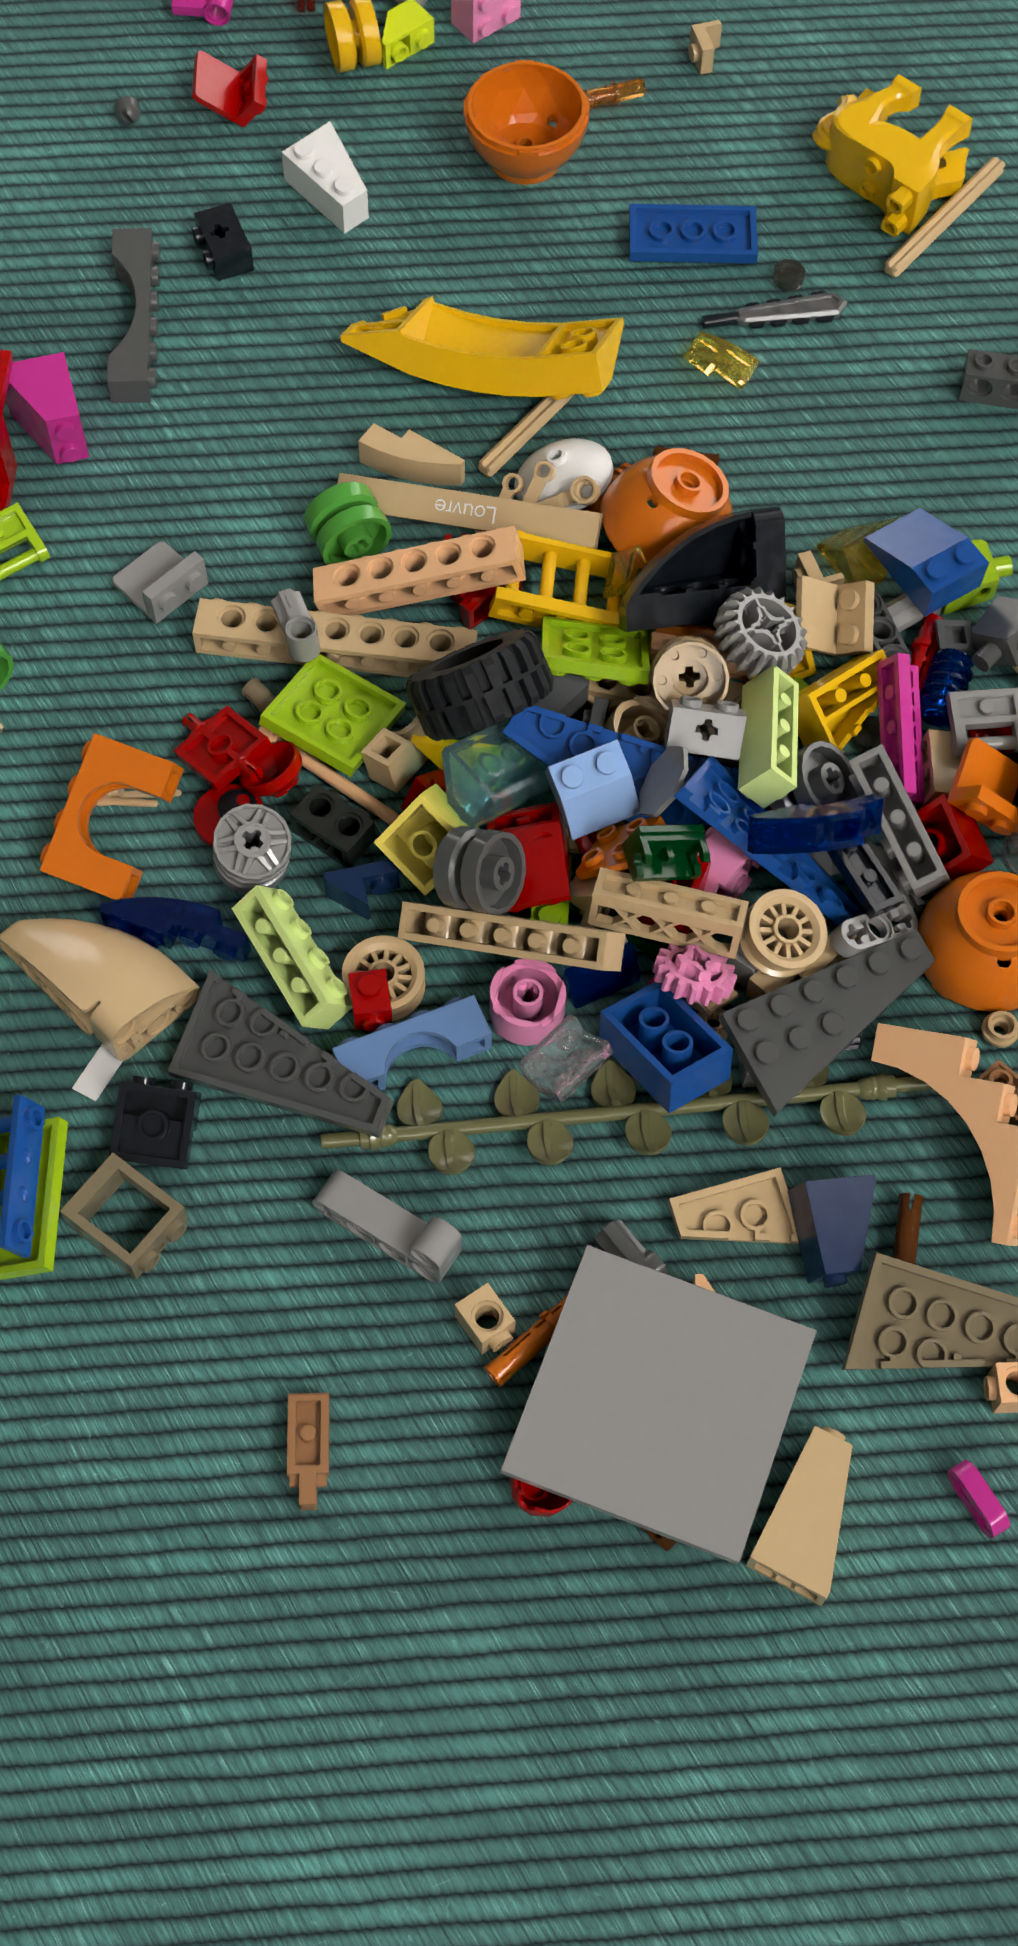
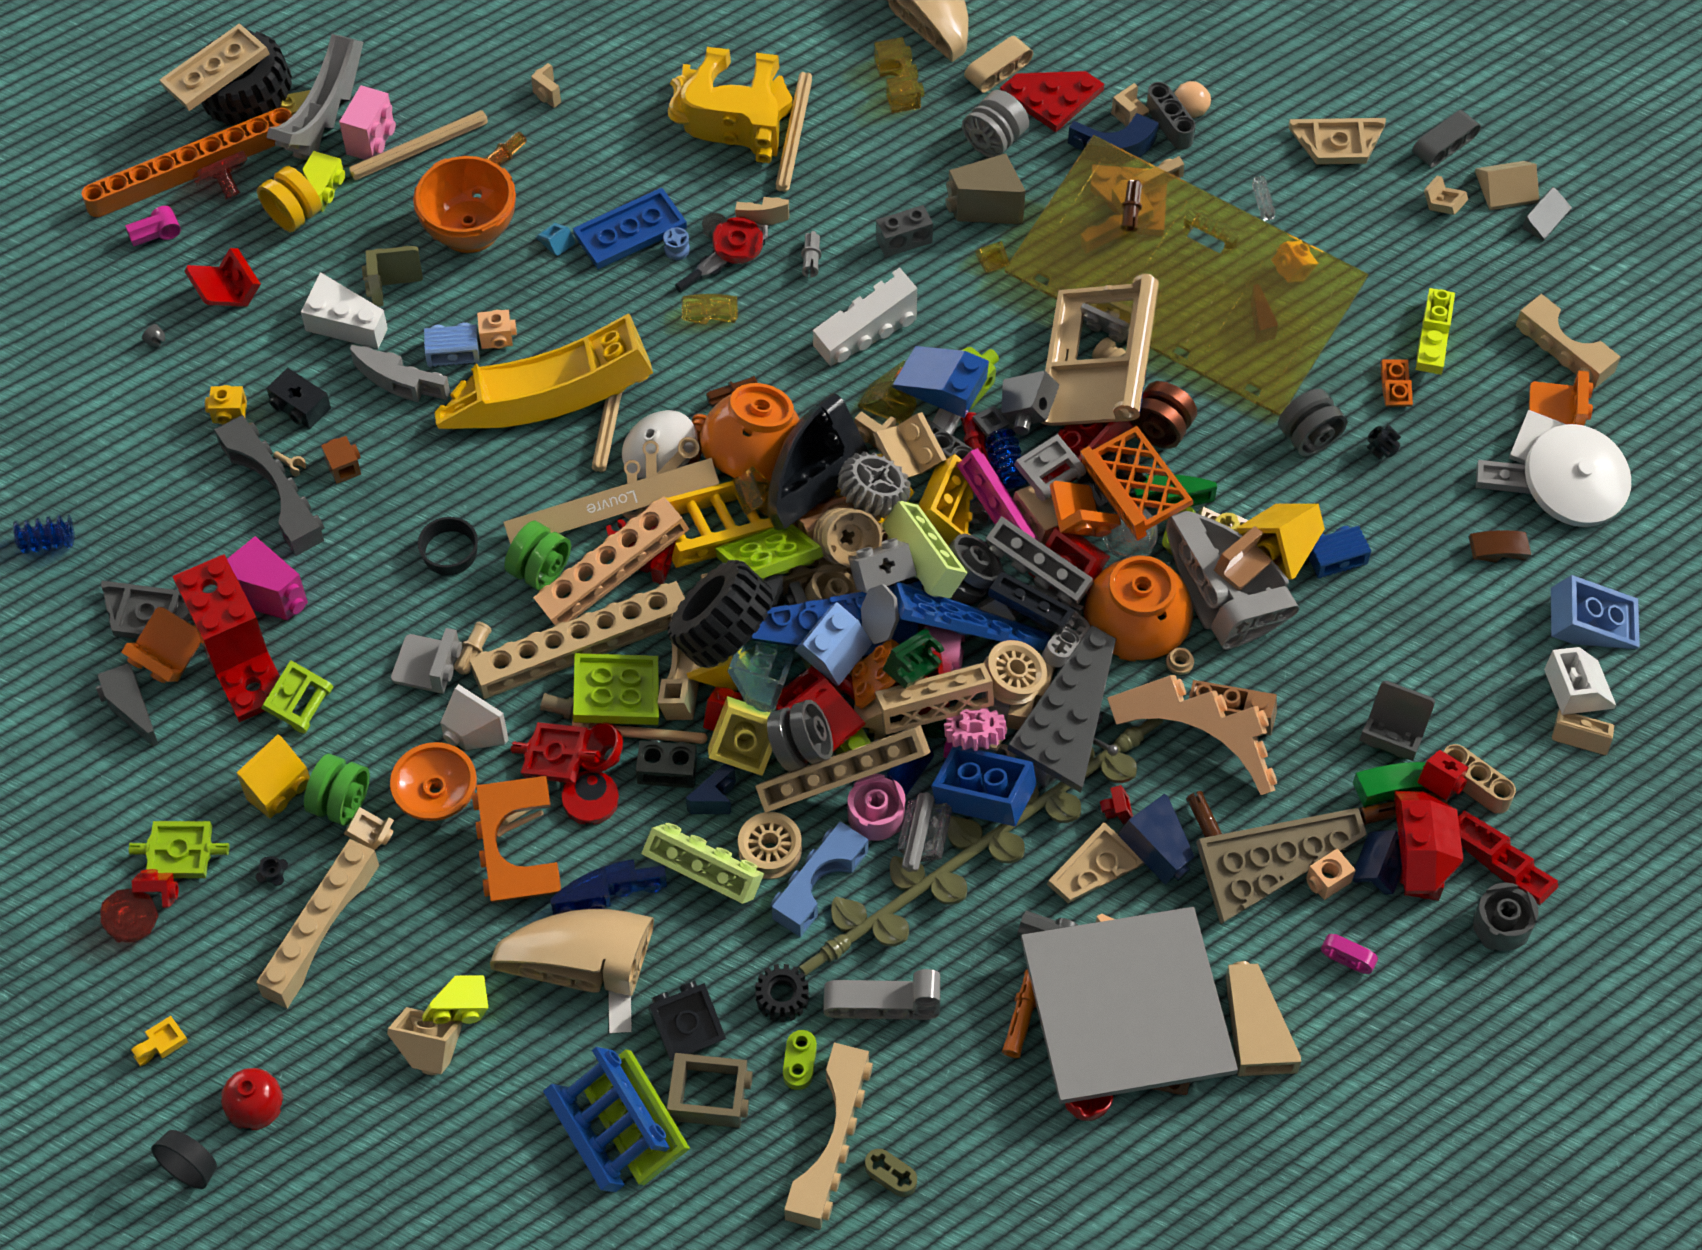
camera: 30 degrees left, 5 degrees down
(69, 694) = (429, 768): none -> orange dish
(146, 209) = (225, 403): none -> yellow brick
(155, 668) = (472, 722): none -> white slope
(157, 1402) = (810, 1193): none -> tan arch
(173, 304) = (295, 461): none -> tan hand
(219, 588) = (472, 647): none -> tan axle
(223, 325) = (342, 459): none -> dark orange brick
(252, 1436) = (887, 1178): none -> olive beam
(253, 1240) = (800, 1058): none -> lime plate
(259, 1057) = (726, 939): dark grey wing -> none
(261, 865) = (619, 820): light grey wheel -> none
(262, 446) = (442, 525): none -> black tyre
(282, 1131) = (782, 1009): none -> black tyre
(296, 625) = (554, 640): light grey piece -> none
(308, 1445) = (926, 1161): medium nougat hinge -> none
(338, 270) = (390, 374): none -> light grey slope
(370, 999) = (774, 861): red bracket -> none
(405, 151) = (388, 268): none -> olive bracket
(410, 457) = (544, 486): tan slope -> none
(418, 263) = (451, 344): none -> light blue brick
(473, 268) = (496, 329): none -> light nougat brick
(481, 1303) = (978, 1009): tan brick -> none
(529, 46) = (418, 145): none -> tan axle
(555, 1057) = (918, 832): none -> light grey axle
(608, 209) = (556, 238): none -> dark azure slope
(732, 273) = (681, 239): none -> medium blue wheel
(801, 301) = (737, 240): none -> red tile
(813, 1157) = (1118, 805): none -> red tile
(814, 828) = (996, 593): clear blue slope -> none
(844, 1087) = (1111, 749): none -> flat silver hinge
(857, 288) = (770, 212): none -> tan slope
(874, 355) = (811, 254): none -> light grey axle
(888, 454) = (868, 319): none -> white wedge

